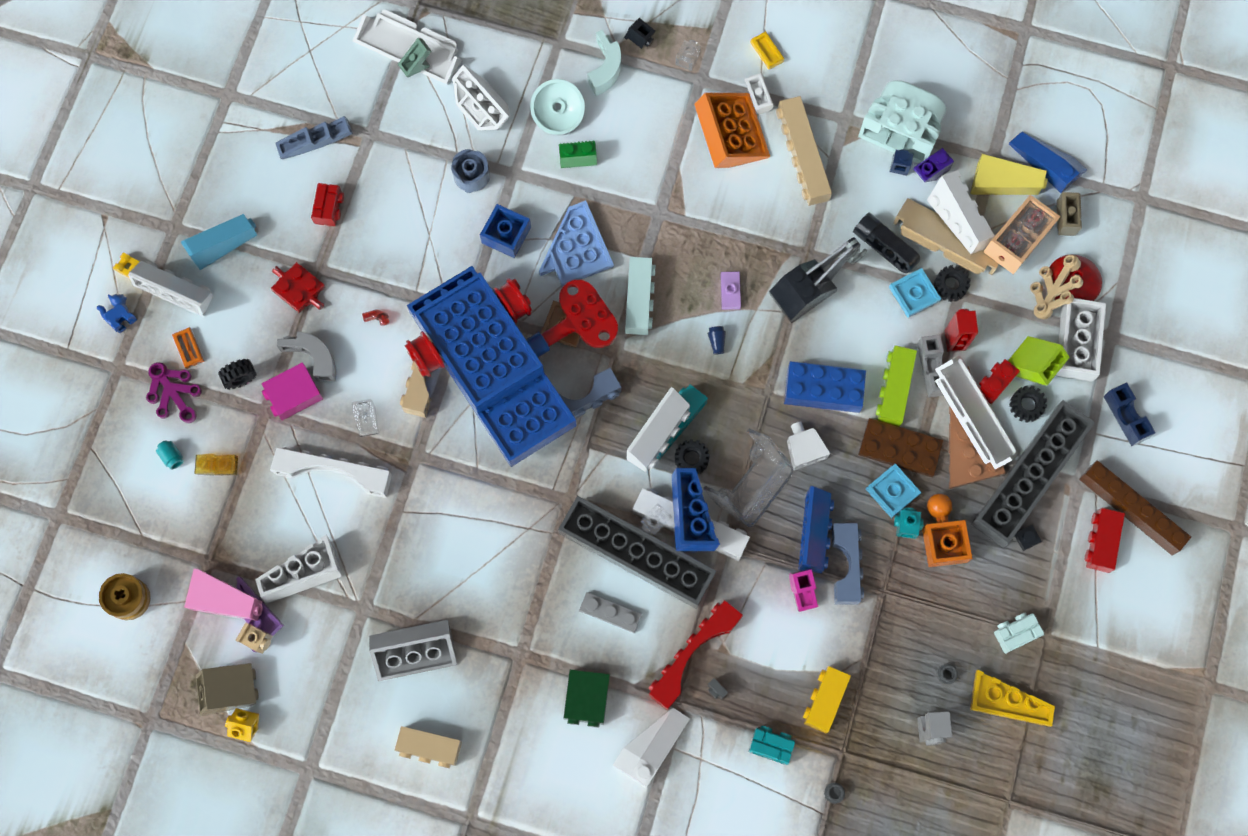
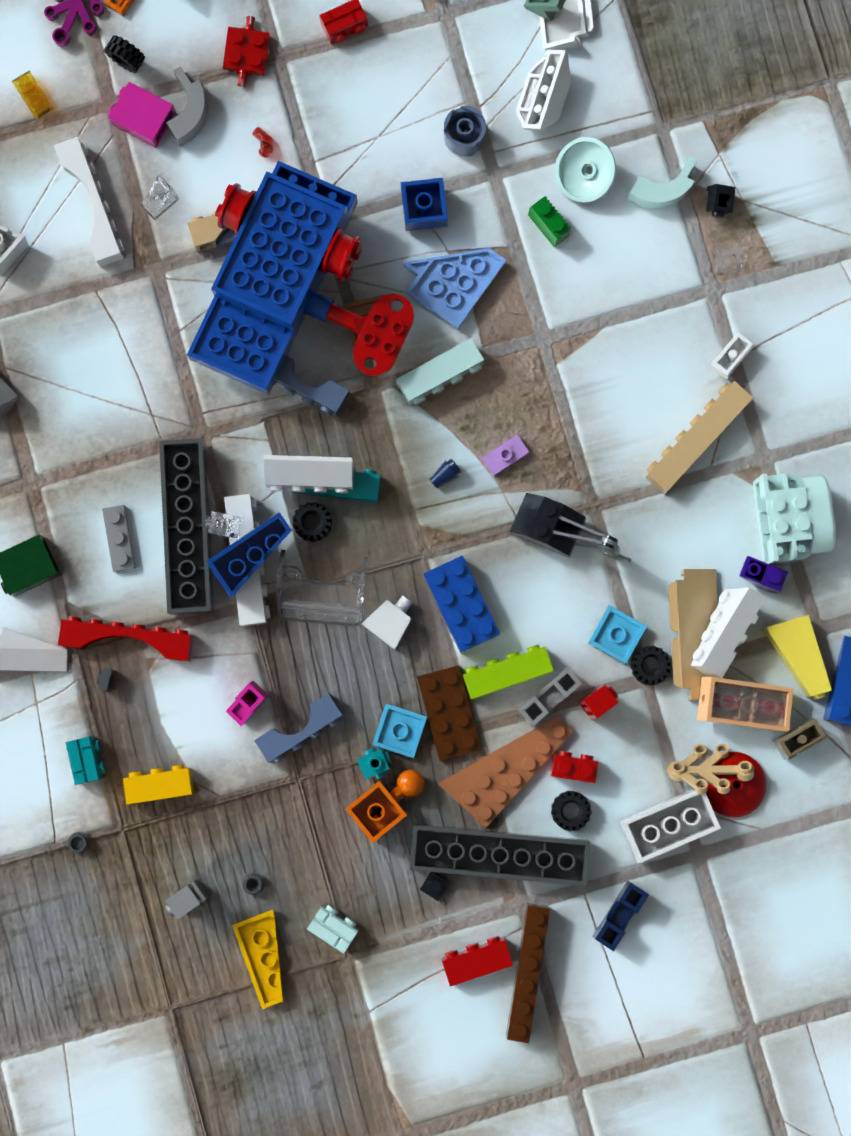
camera: 60 degrees right, 10 degrees up
(169, 454) = (14, 47): teal brick -> none
(731, 129) = (675, 352): orange slope -> none
(767, 50) = (788, 335): yellow tile -> none
(815, 530) = (311, 680): blue slope -> none
(886, 243) = (650, 576): black beam -> none
(901, 158) = (749, 540): dark blue brick -> none
(975, 413) = (523, 764): white slope -> none
(1038, 360) = (617, 794): lime brick -> none

